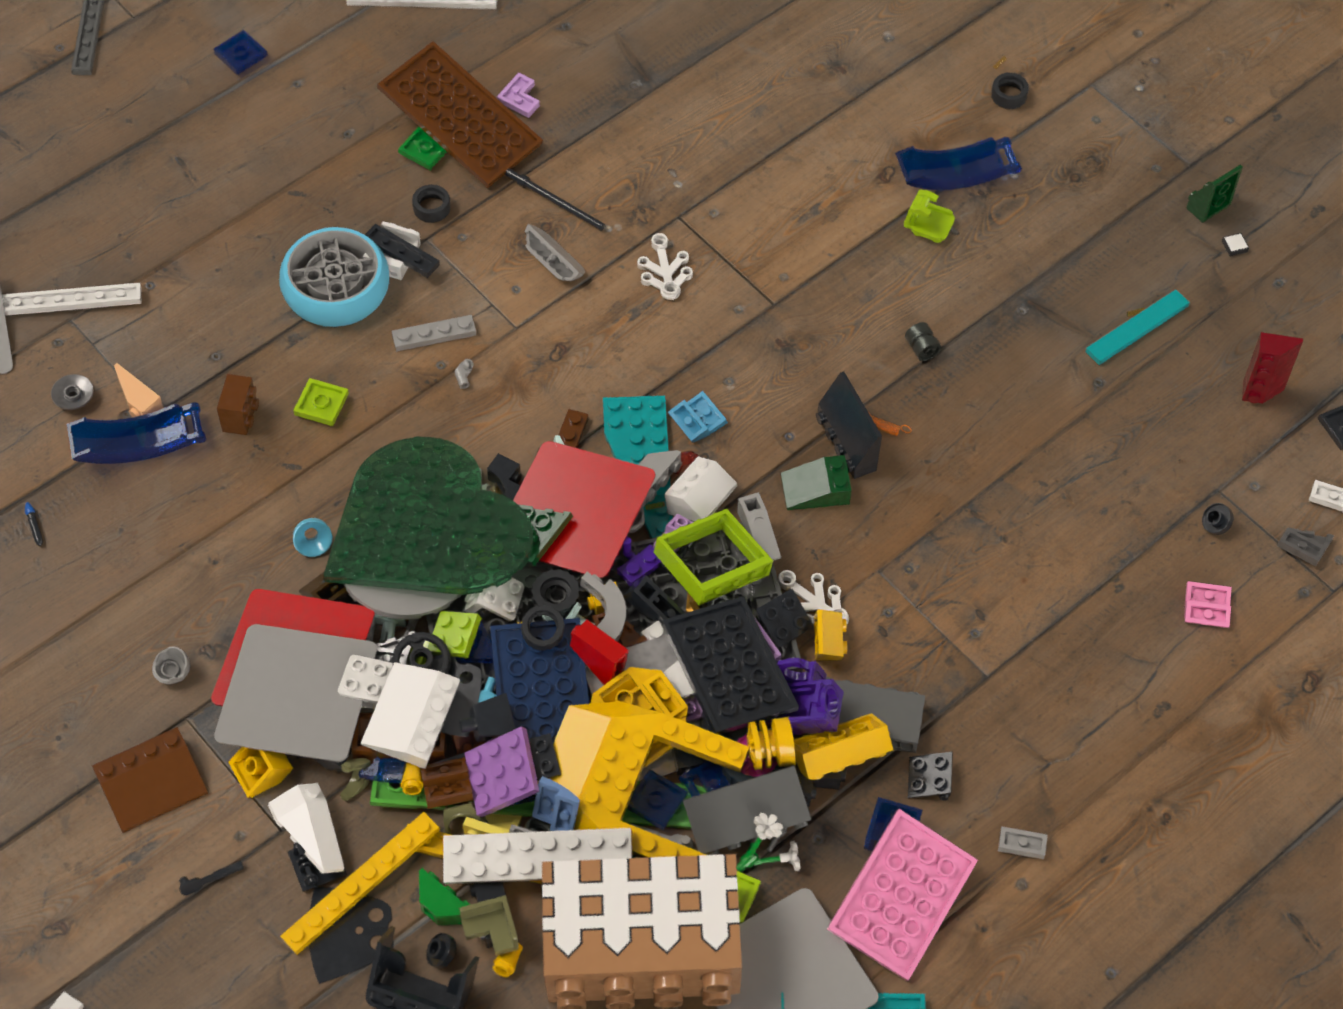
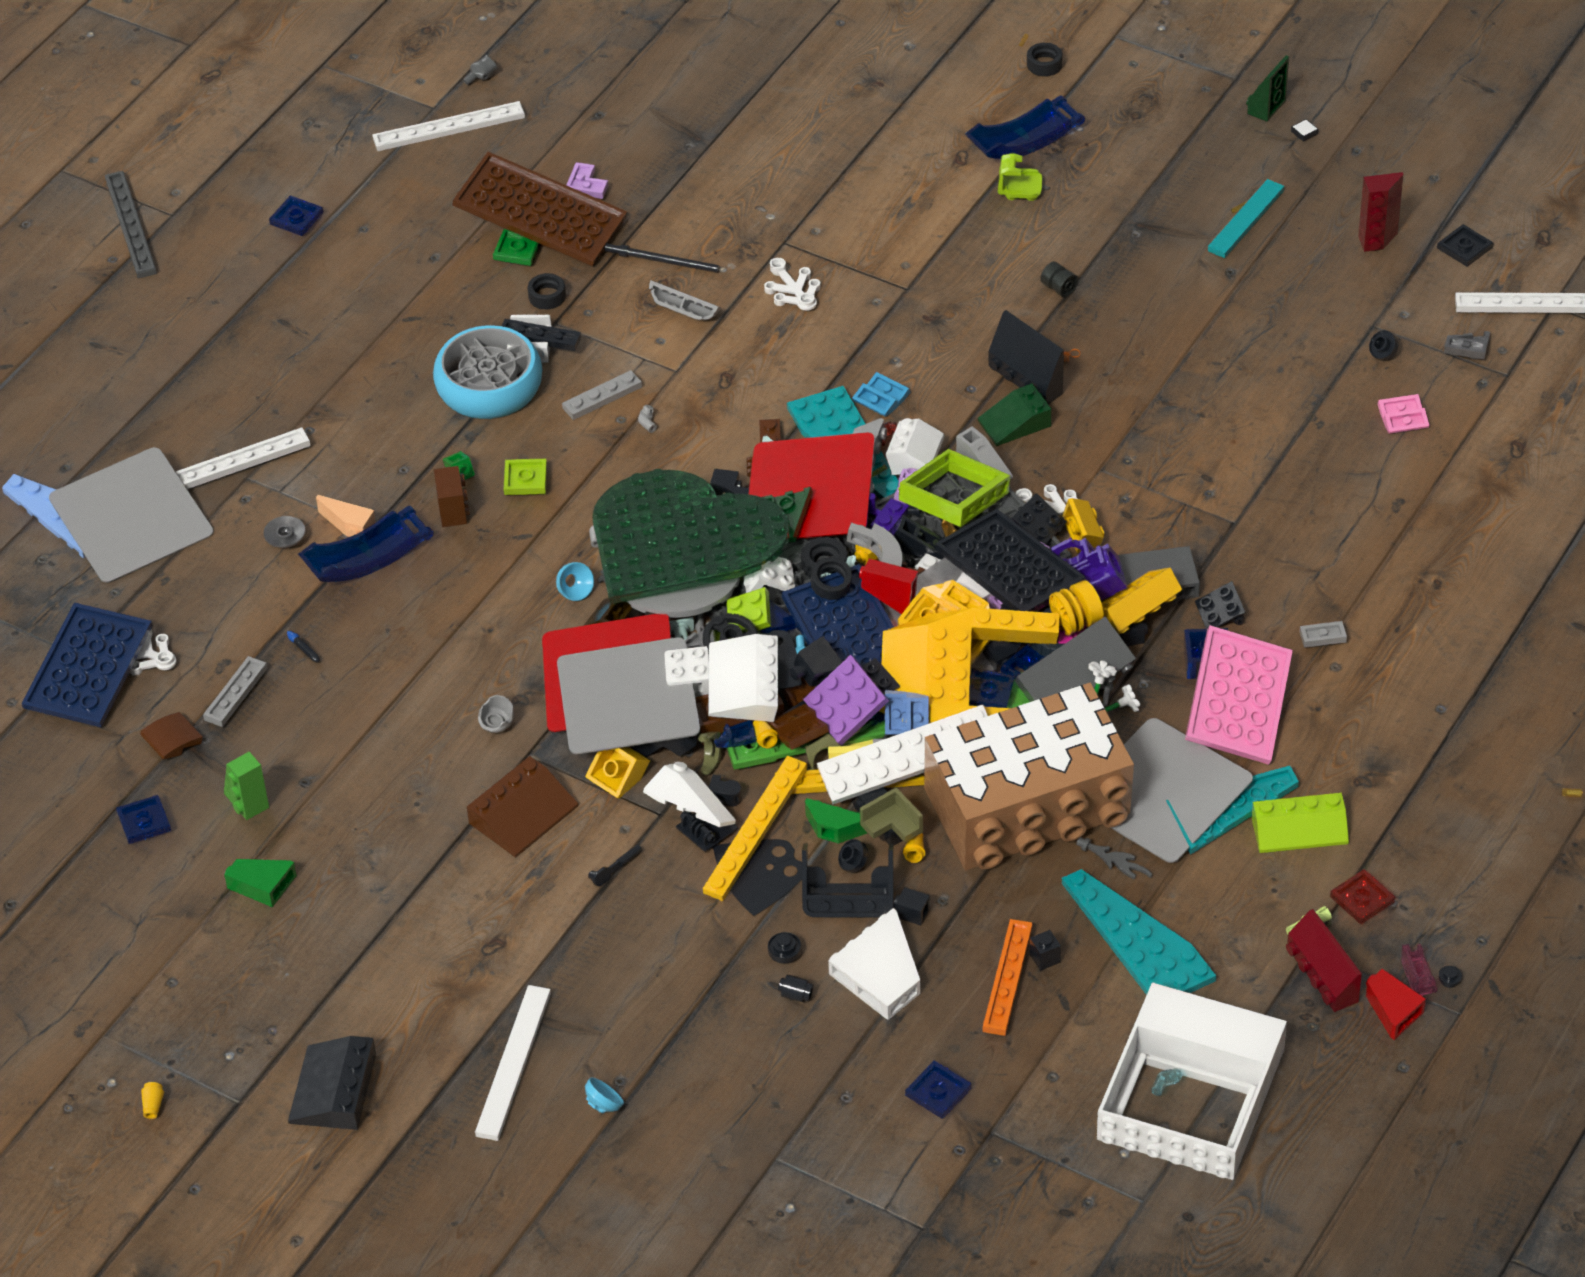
camera: 15 degrees left, 10 degrees down
(265, 370) = (462, 461): none -> green bracket
(350, 829) = (726, 791): none -> black leg

